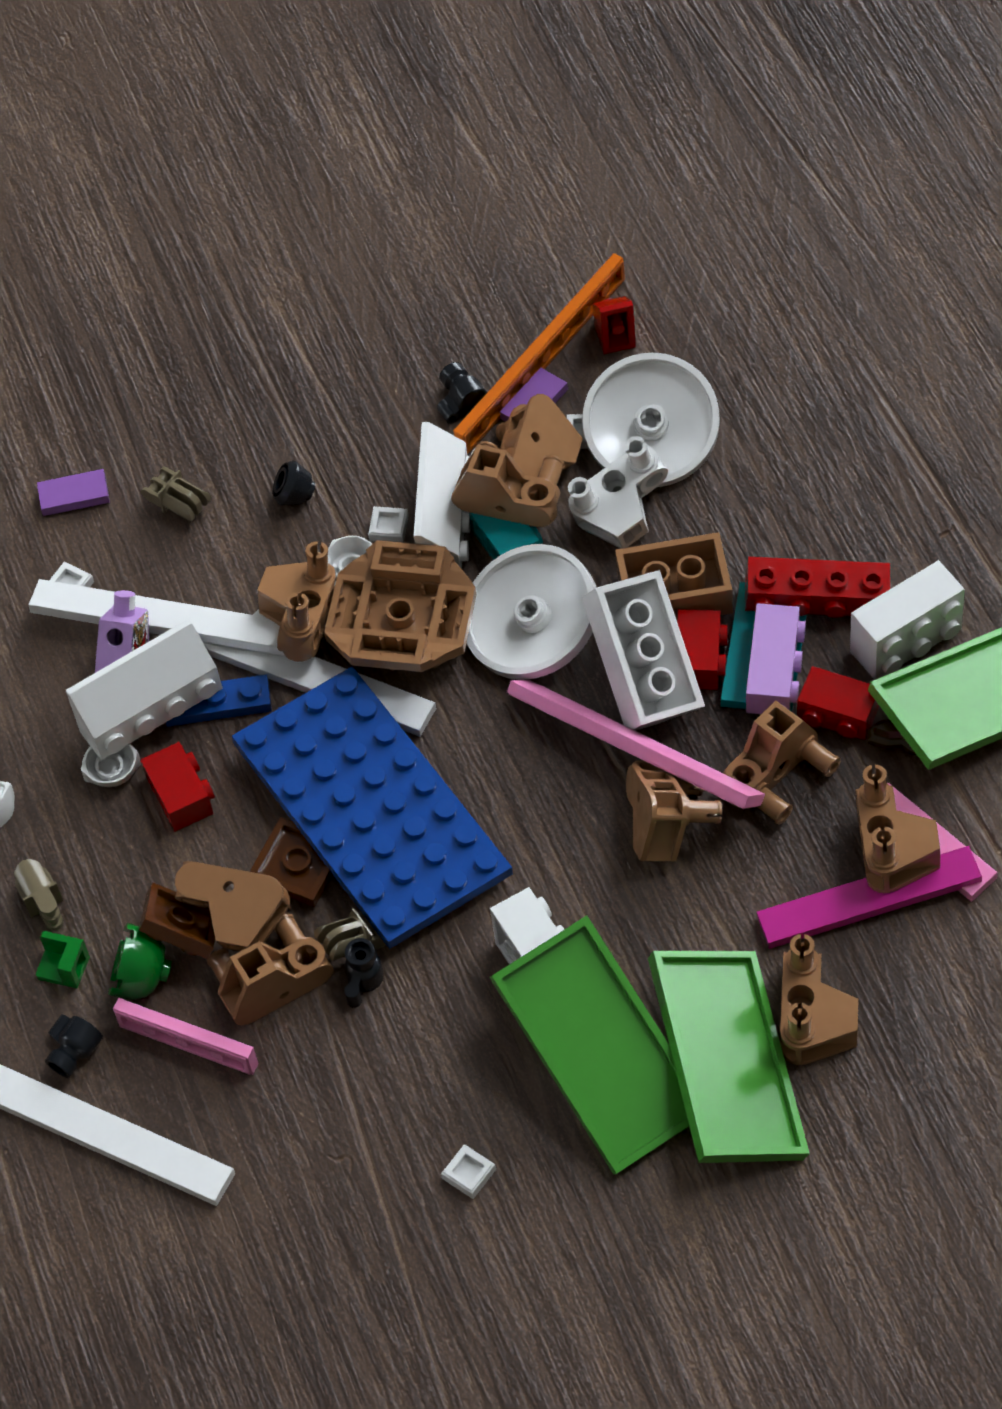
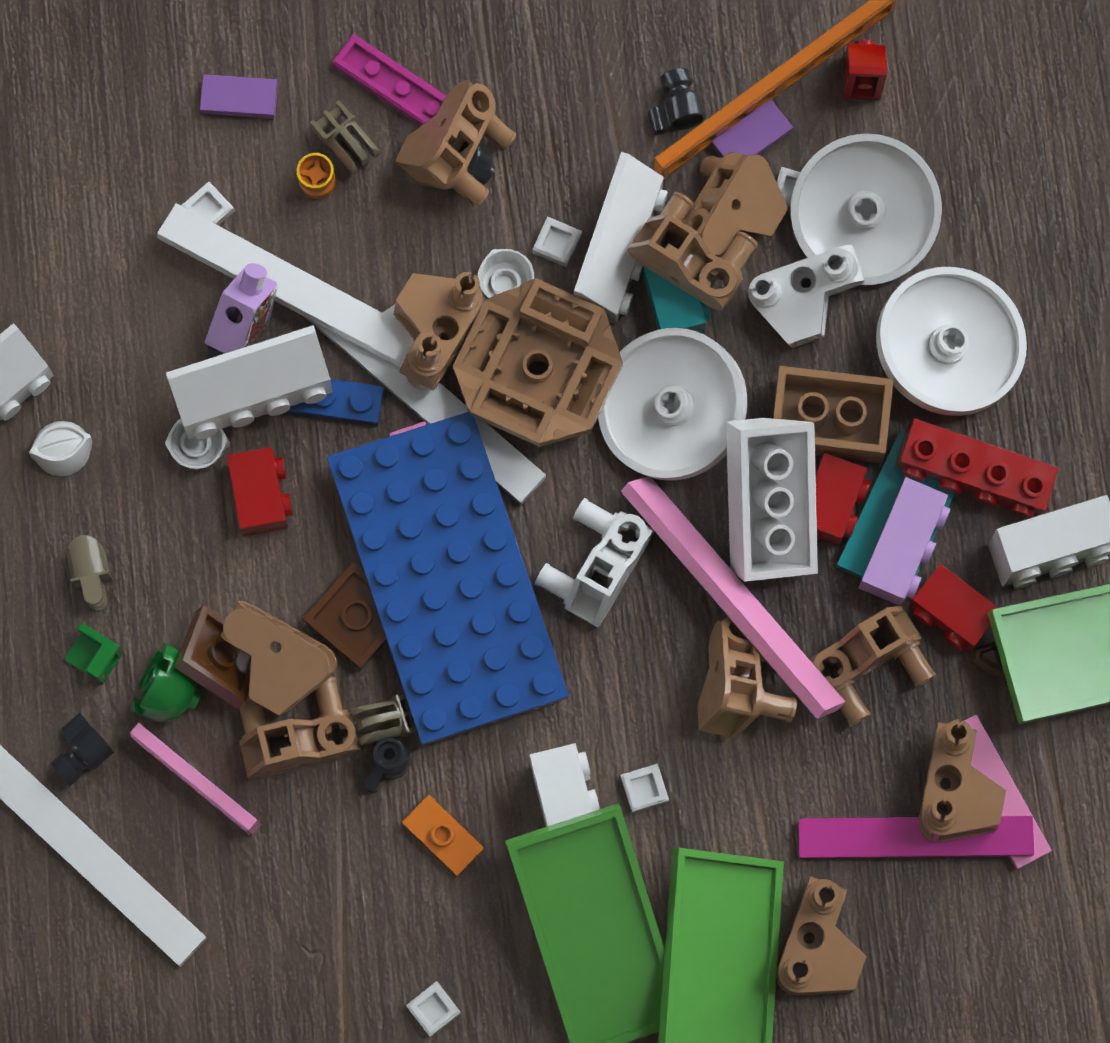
camera: 10 degrees right, 20 degrees up
(159, 529) = (316, 167): none -> orange wheel
(217, 449) = (388, 80): none -> dark pink tile
(268, 465) = (433, 149): none -> medium nougat piece
(432, 1021) = (443, 835): none -> orange plate
(510, 757) = (609, 558): none -> white piece
(611, 927) = (644, 788): none -> white tile
(760, 497) = (951, 341): none -> white dish

